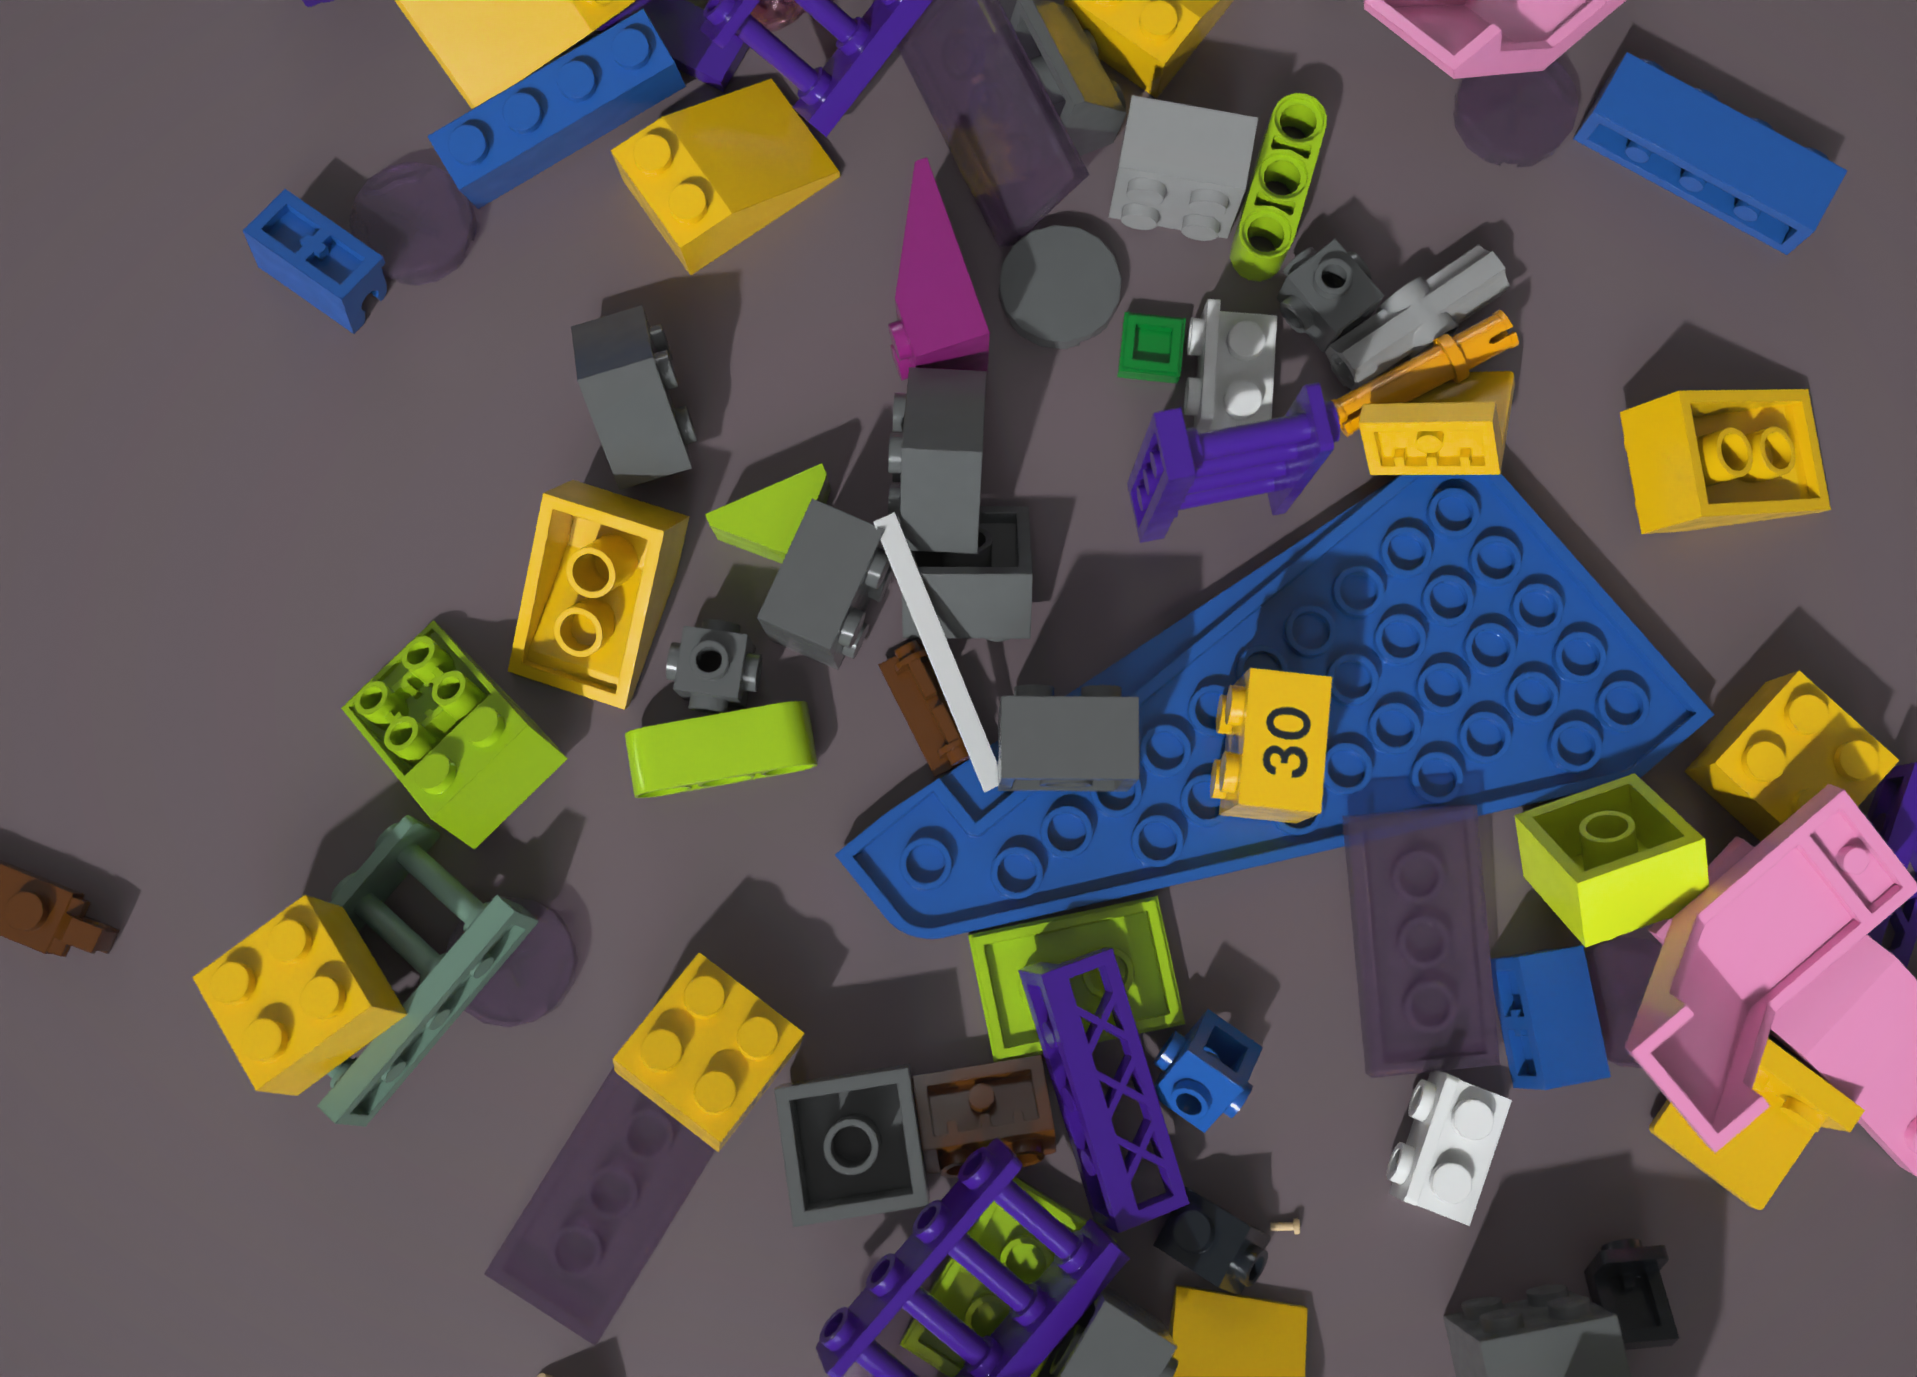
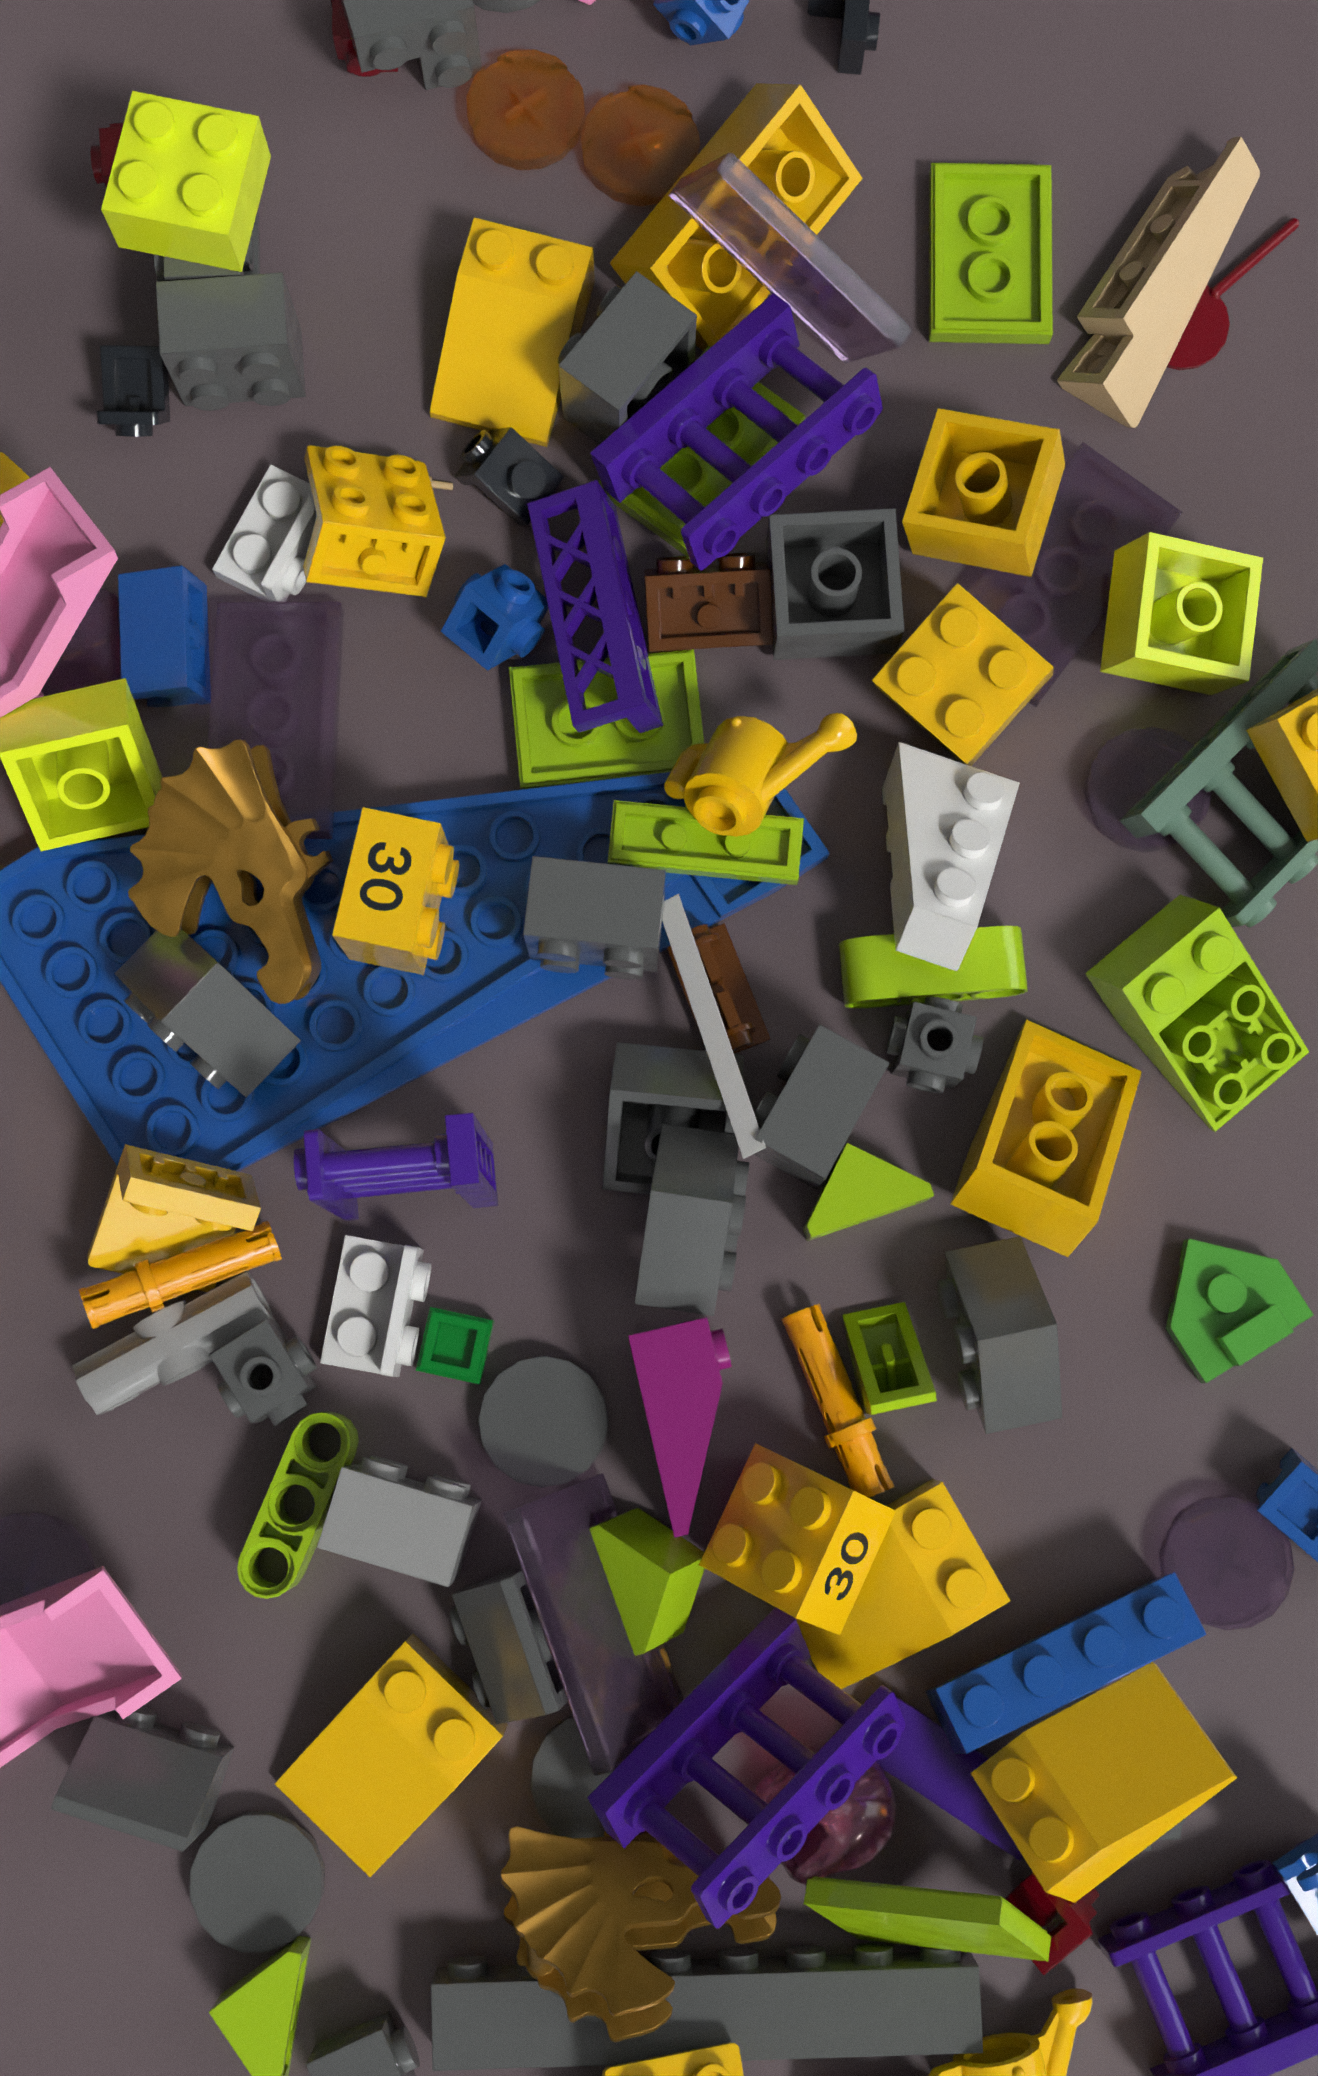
camera: 175 degrees left, 0 degrees up
(412, 450) = (1230, 1307): none -> bright green plate
(479, 1146) = (1181, 614): none -> neon yellow brick
(698, 1265) = (984, 492): none -> yellow brick
(715, 858) = (943, 850): none -> white wedge
(738, 363) = (887, 1359): none -> lime slope
(774, 306) = (841, 1413): none -> light orange pin
(812, 186) = (797, 1539): none -> yellow brick
(927, 916) = (745, 766): none -> yellow piece
(955, 153) = (649, 1576): none -> lime slope
(962, 848) = (675, 842): none -> lime tile
(1353, 1169) = (372, 522): none -> yellow bracket
(1440, 787) = (224, 827): none -> pearl gold animal
(1448, 614) = (199, 1003): none -> dark grey brick

